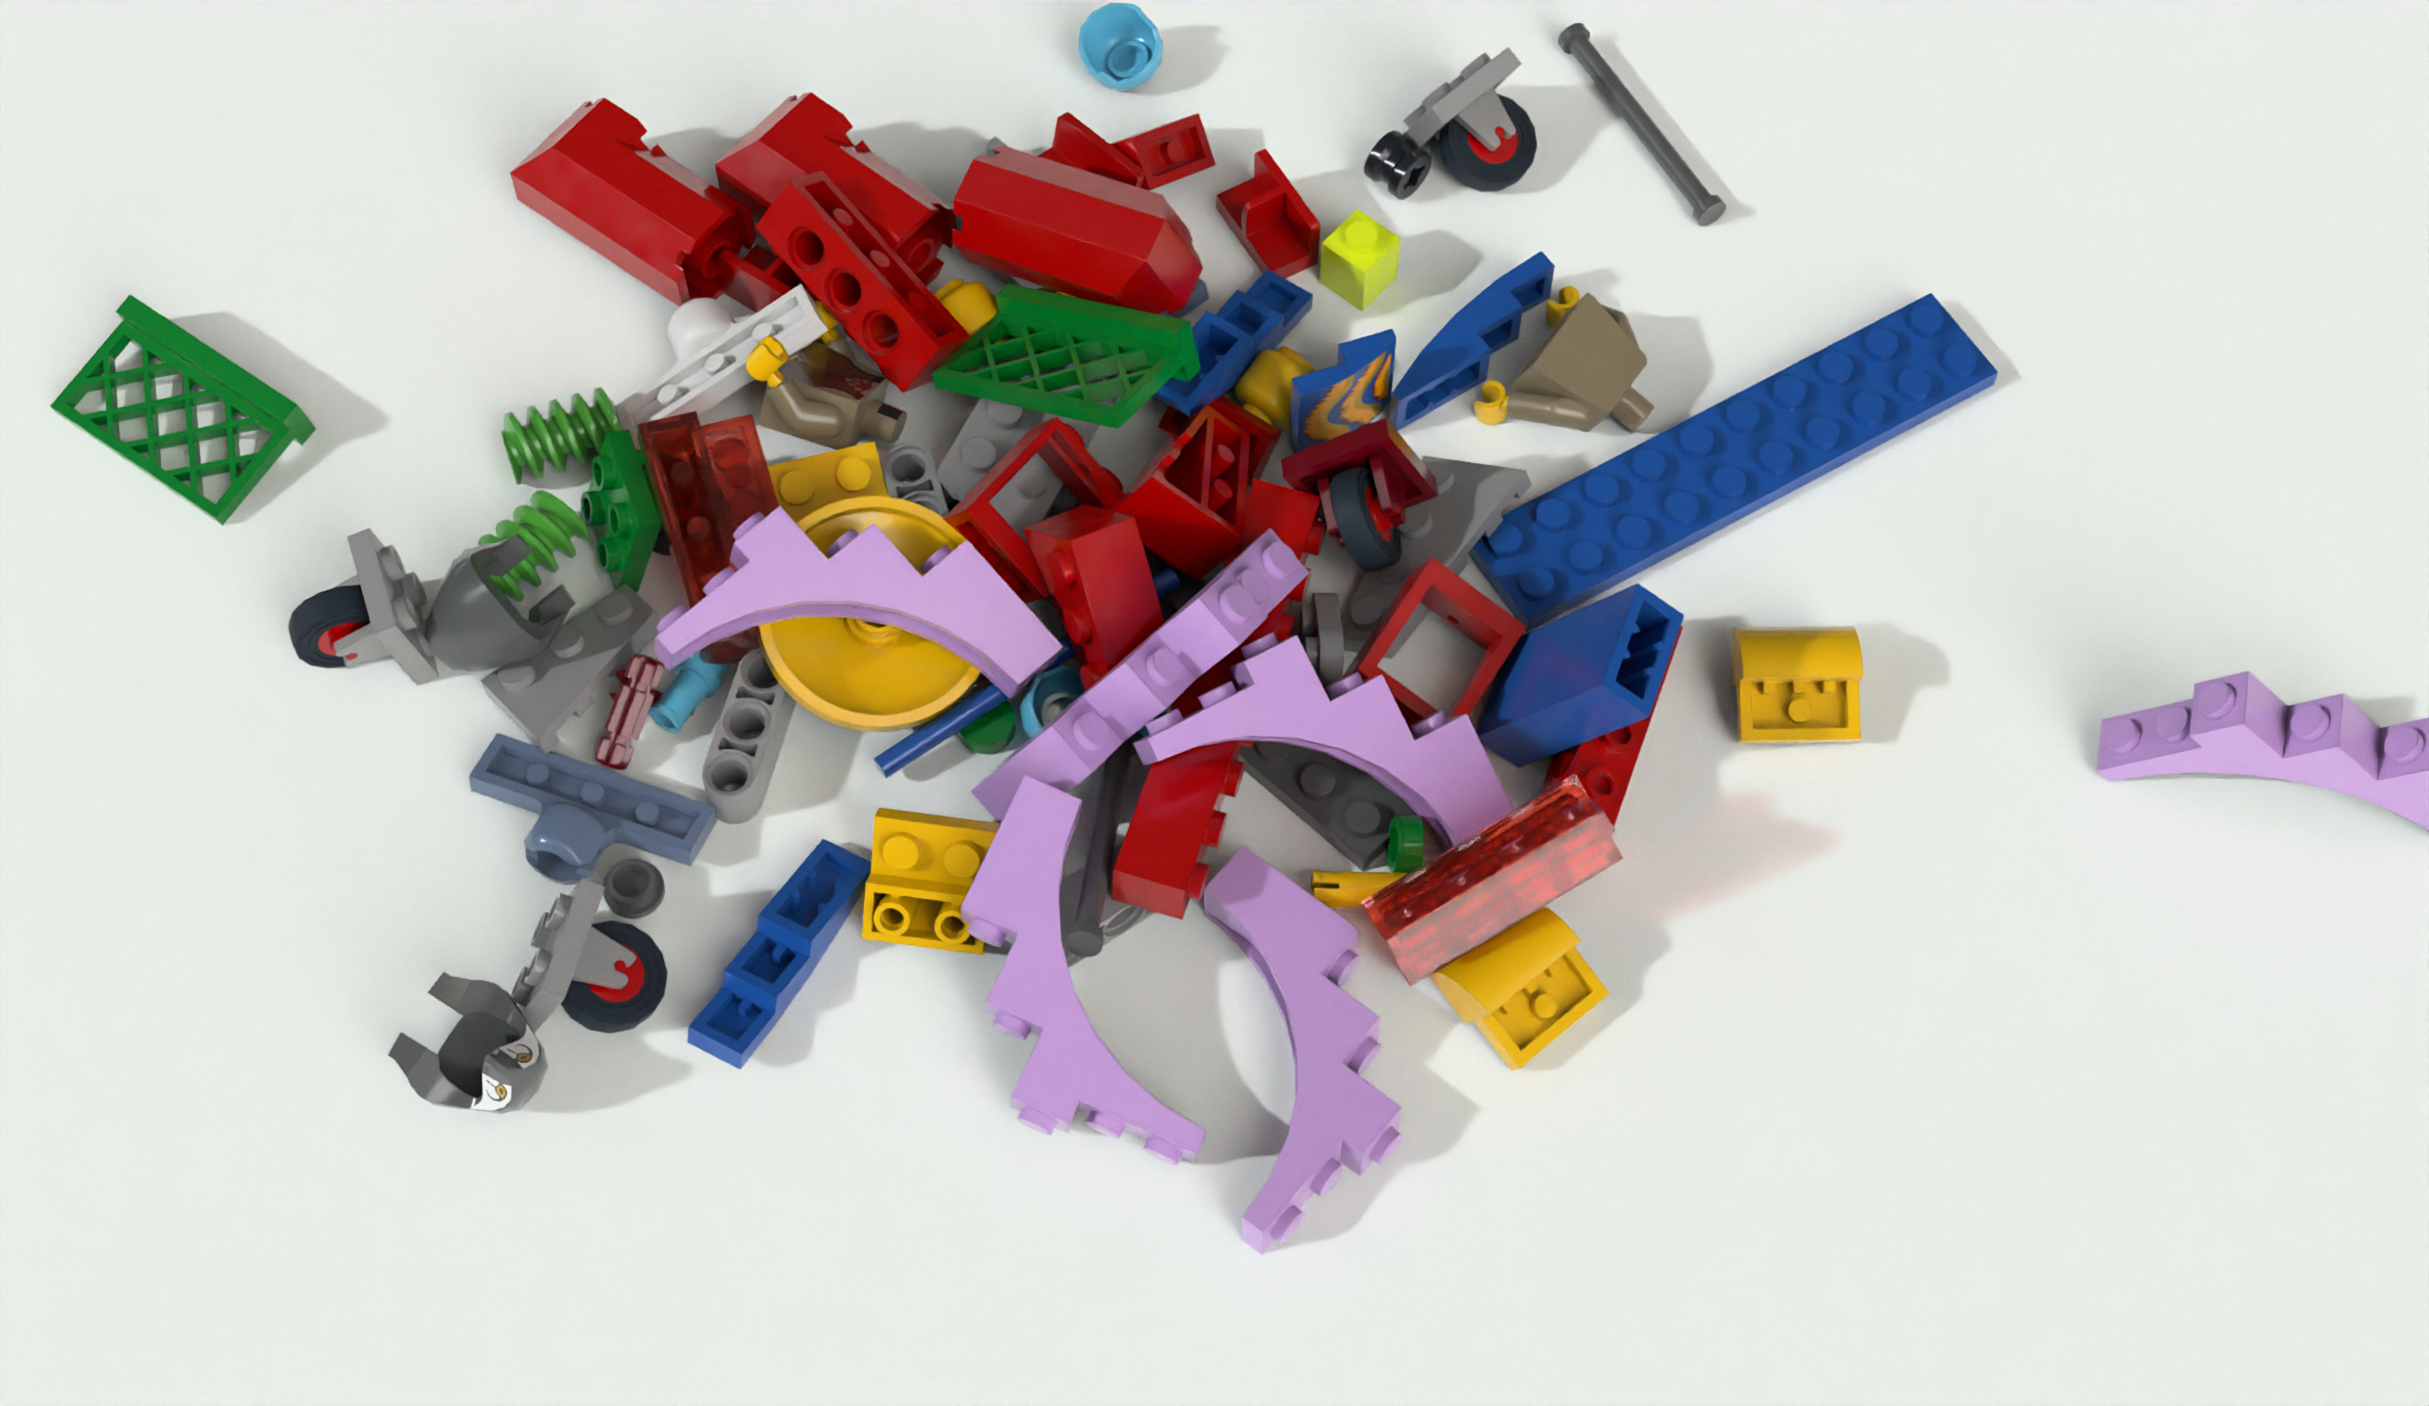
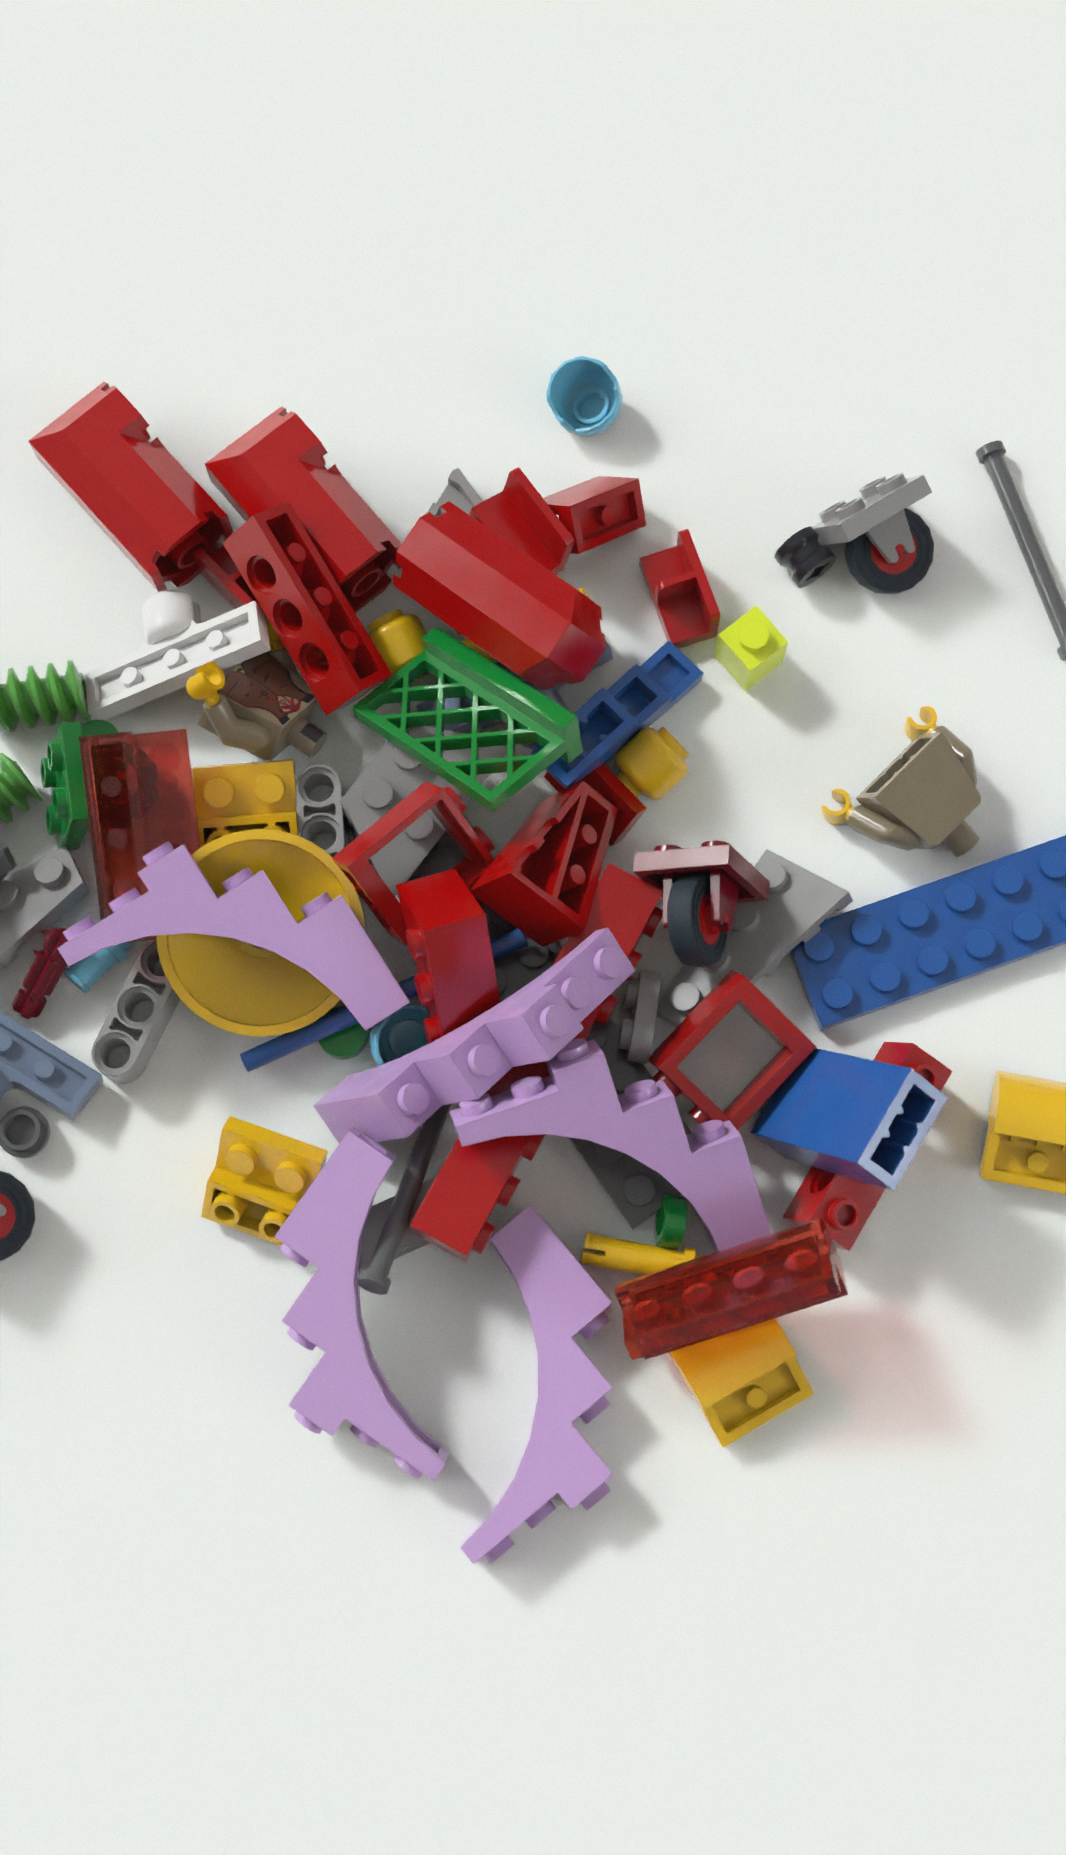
camera: 15 degrees right, 15 degrees up
(781, 954) = (132, 1216): blue slope -> none
(1343, 395) = (690, 795): slope -> none
(1461, 350) = (819, 755): blue slope -> none

